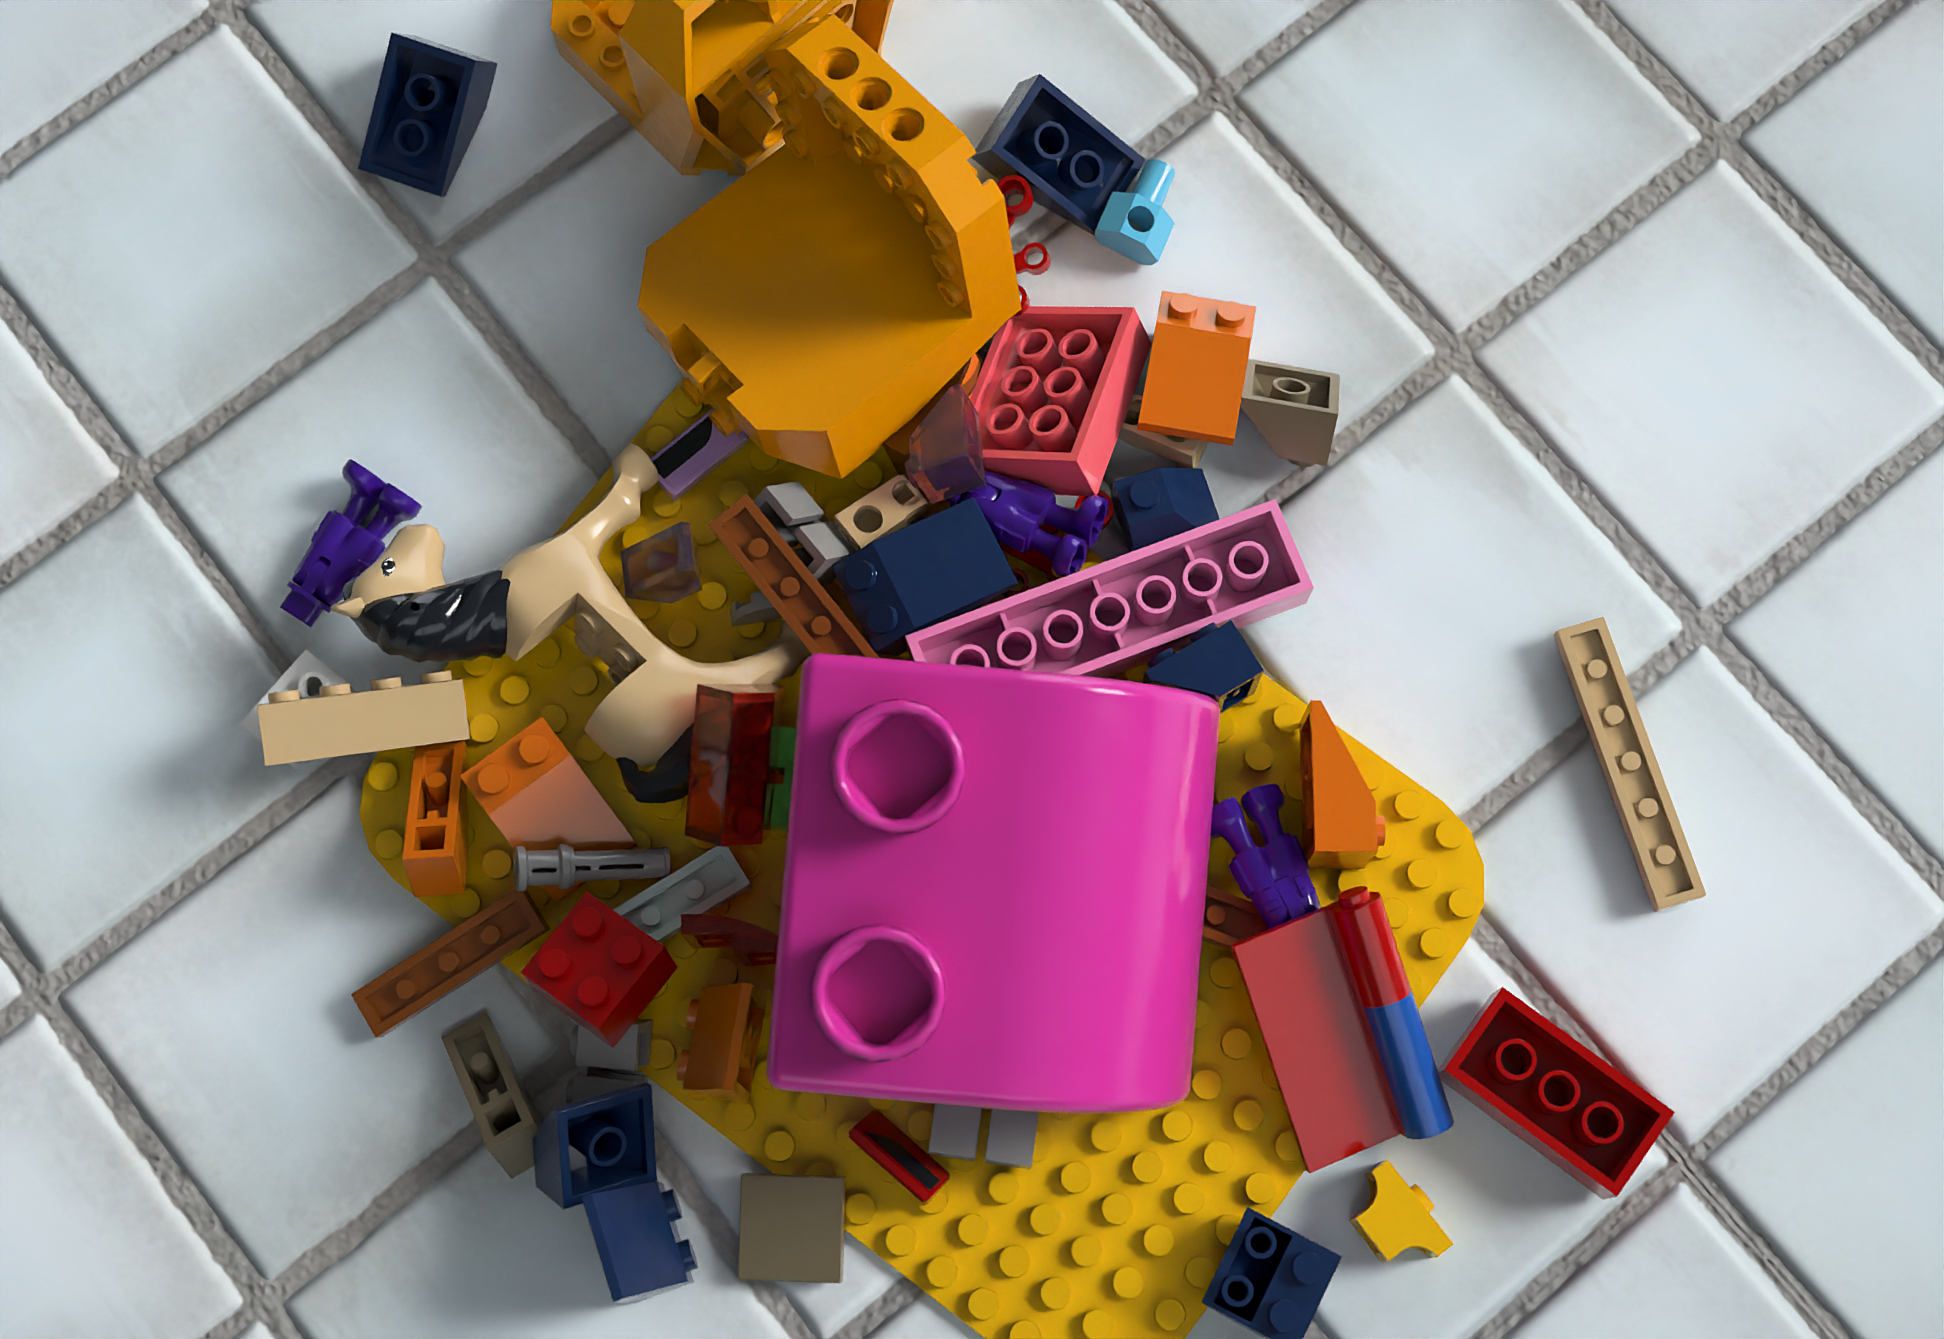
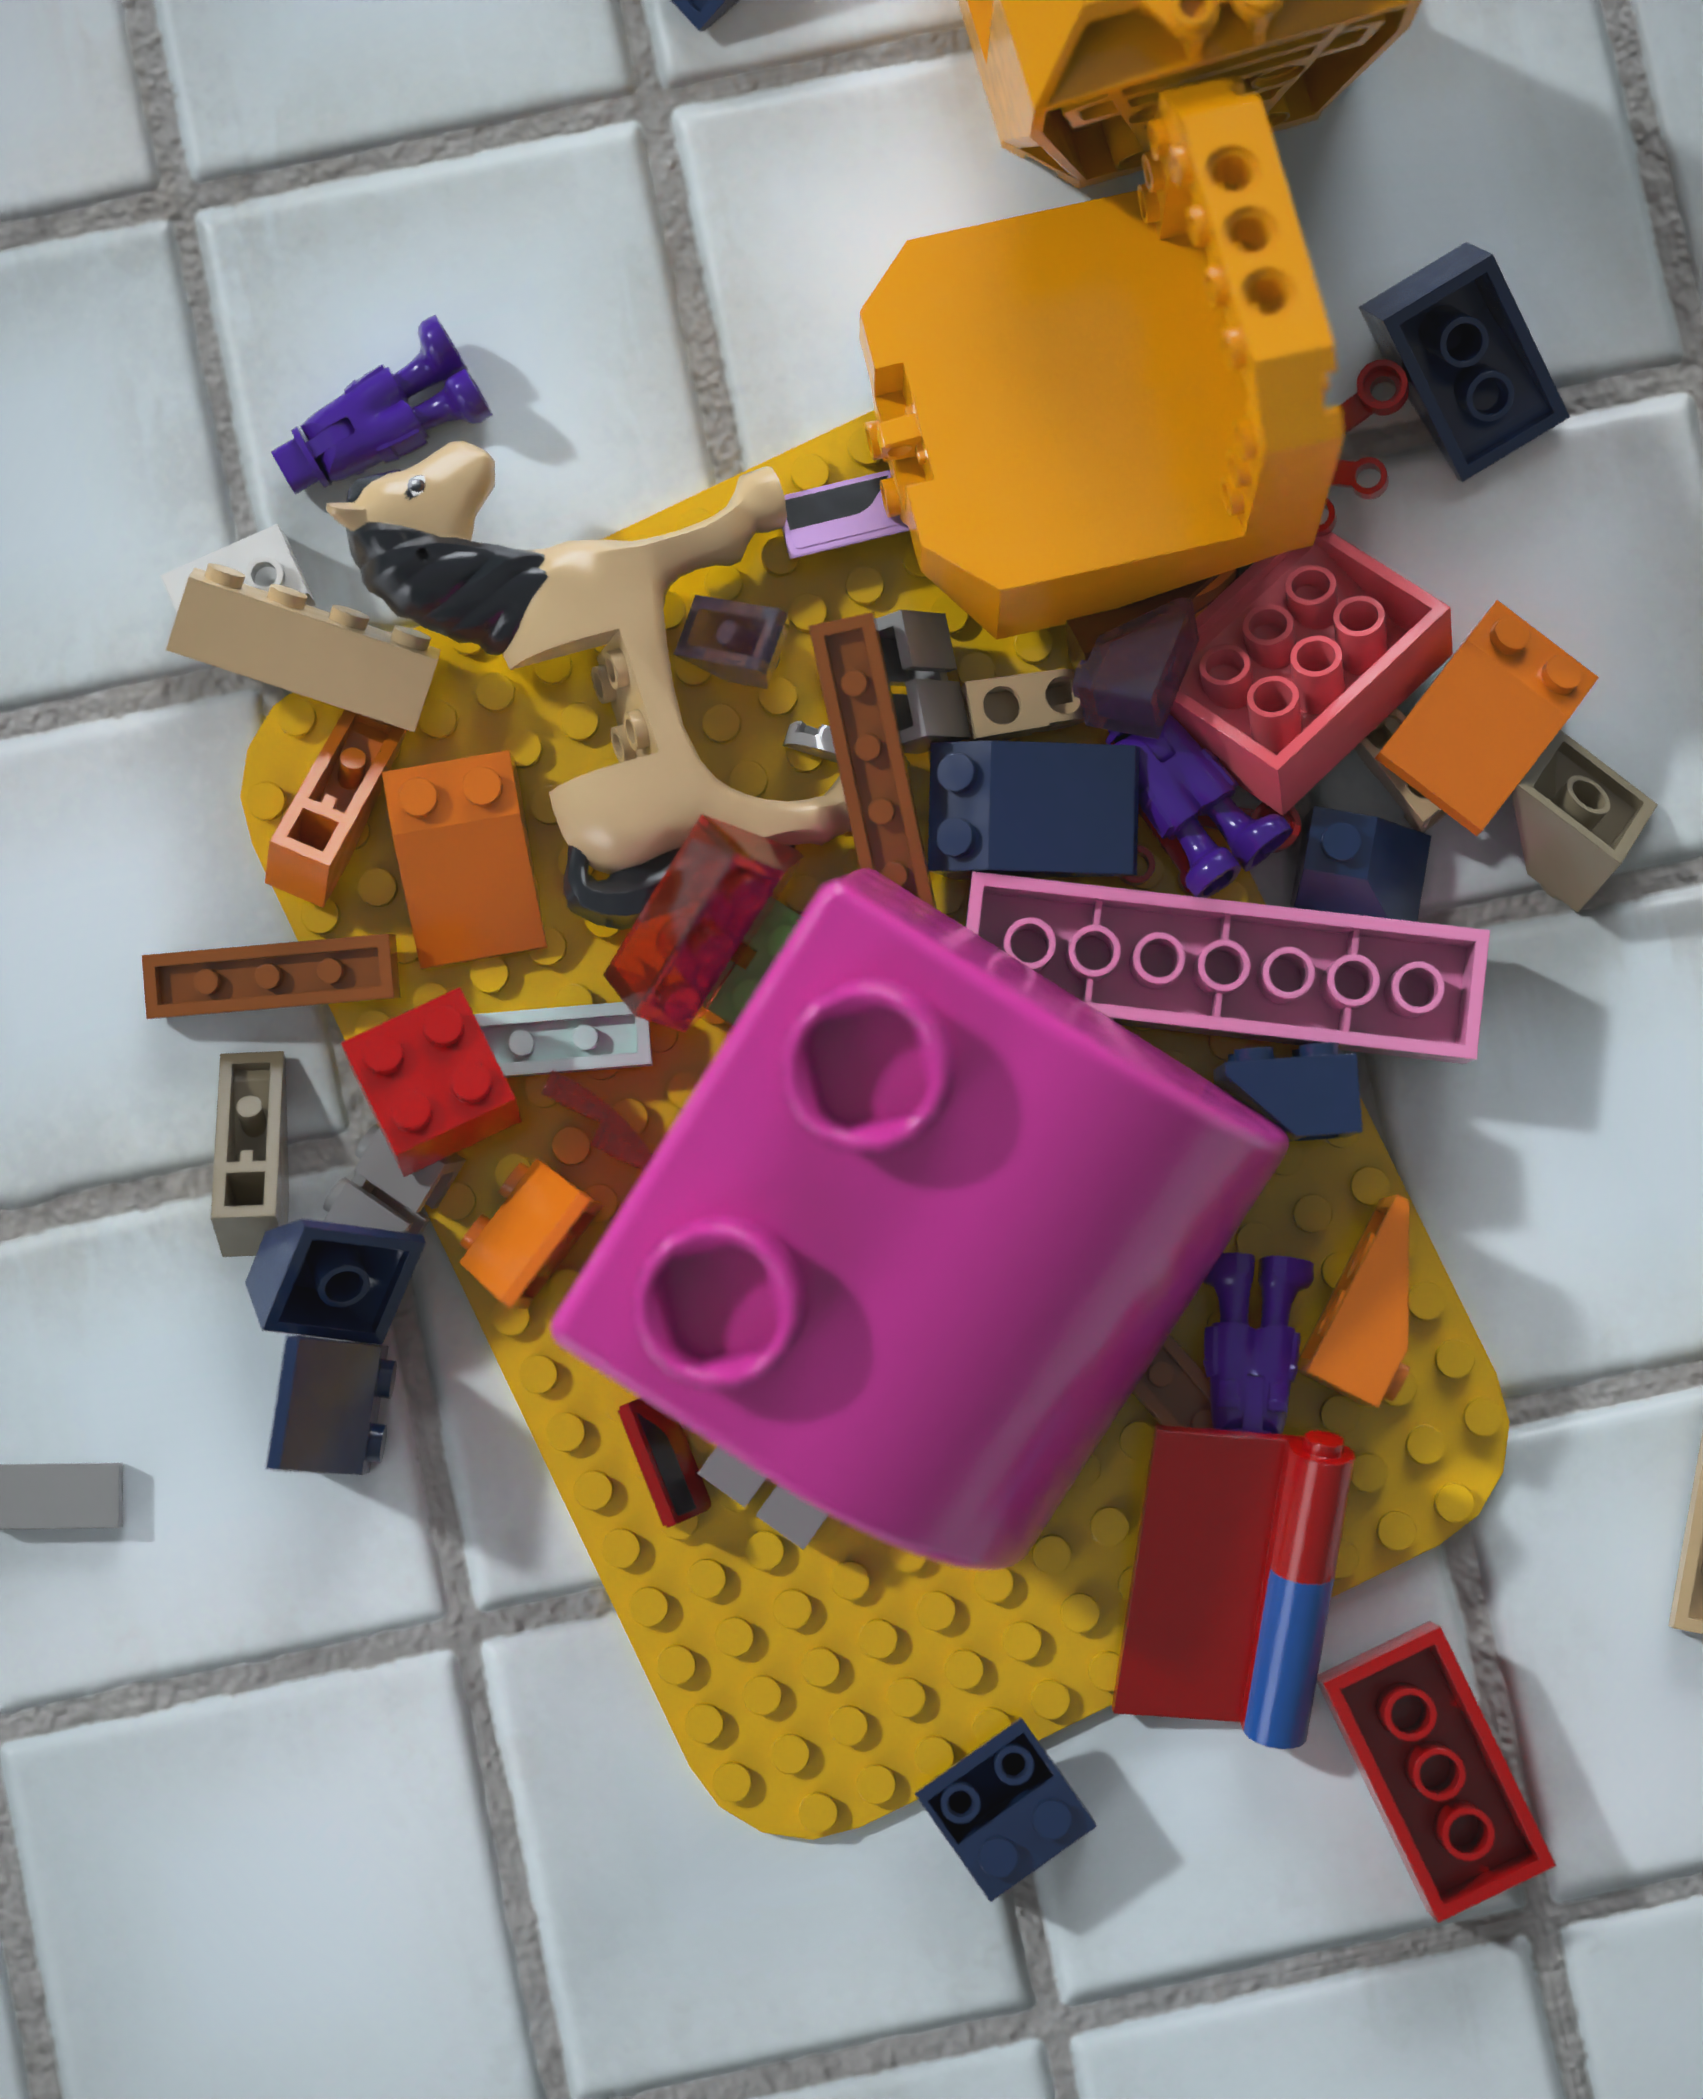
camera: 25 degrees right, 10 degrees up
(559, 868) = (453, 939): light grey pin -> none
(792, 1228) = (506, 1472): dark tan tile -> none
(1144, 209) = (1534, 481): medium azure piece -> none
(1398, 1217) = (1185, 1812): yellow brick -> none

